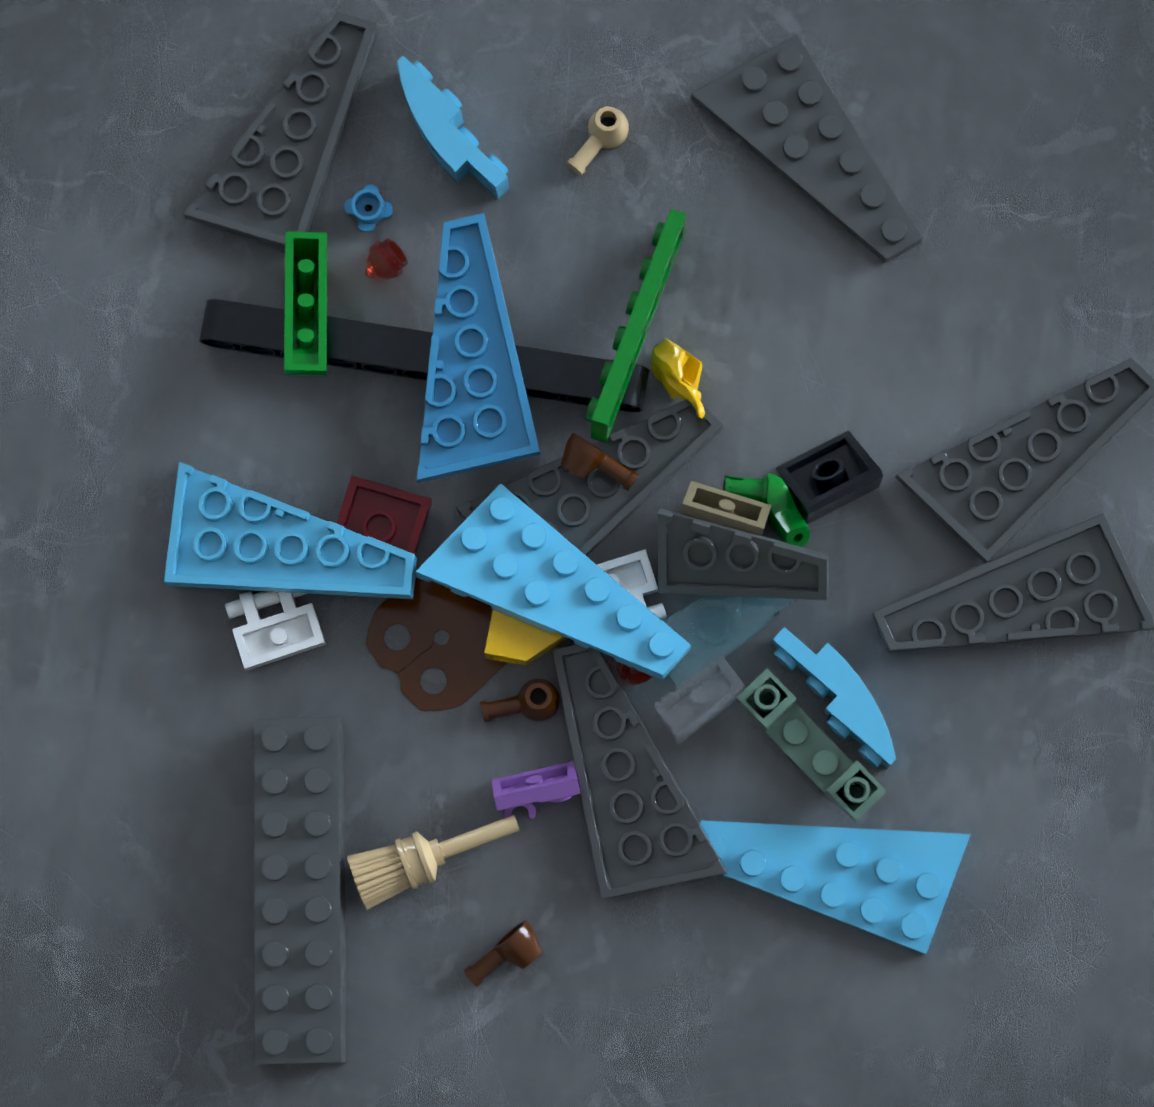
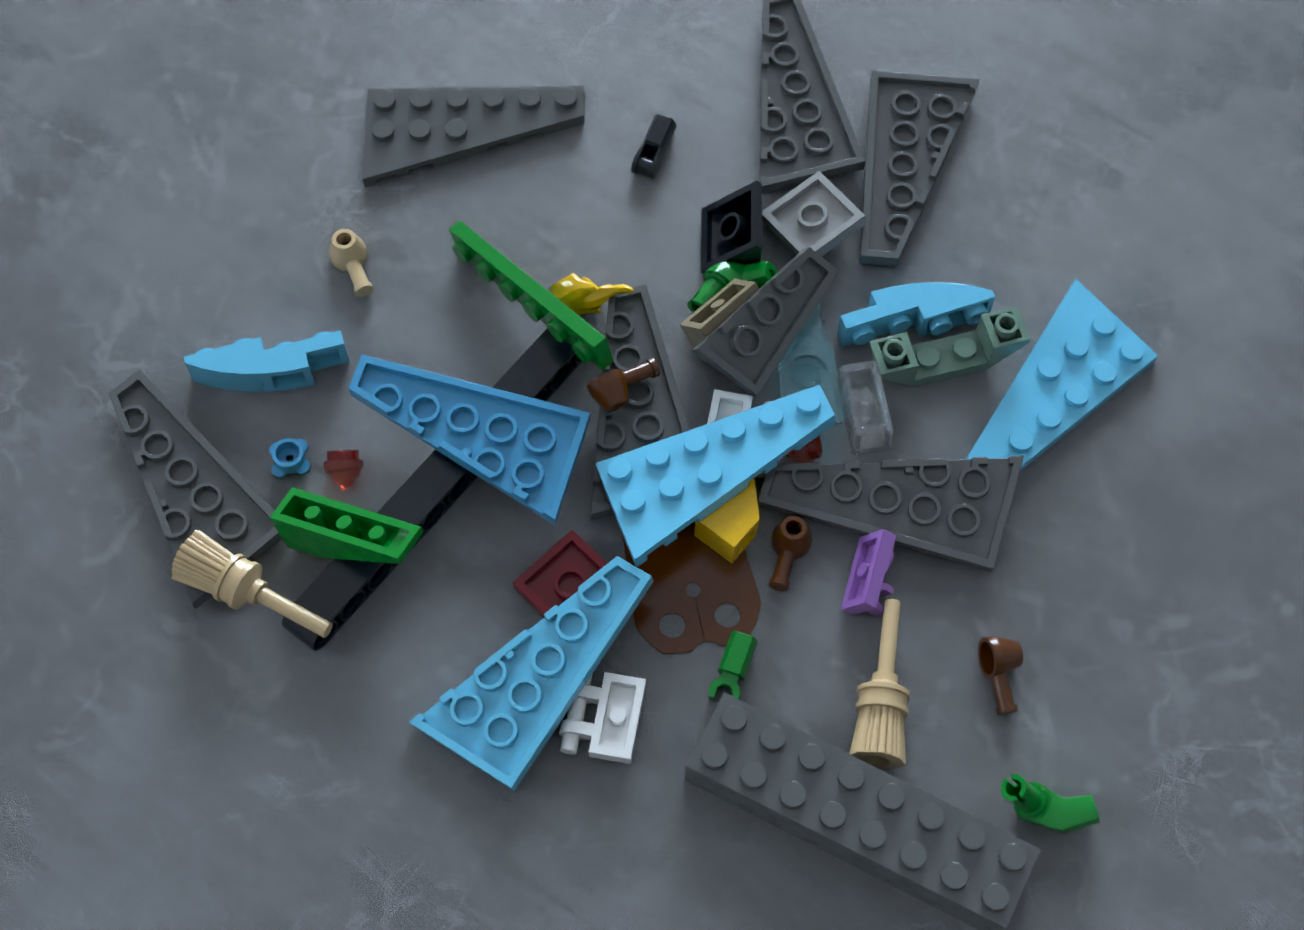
camera: 70 degrees left, 15 degrees down
(214, 240) = (235, 581): none -> tan piece
(382, 712) = (734, 664): none -> green bar
(395, 1053) = (1046, 808): none -> green arm
(889, 544) = (813, 216): none -> light grey plate
(895, 346) = (654, 145): none -> black bar

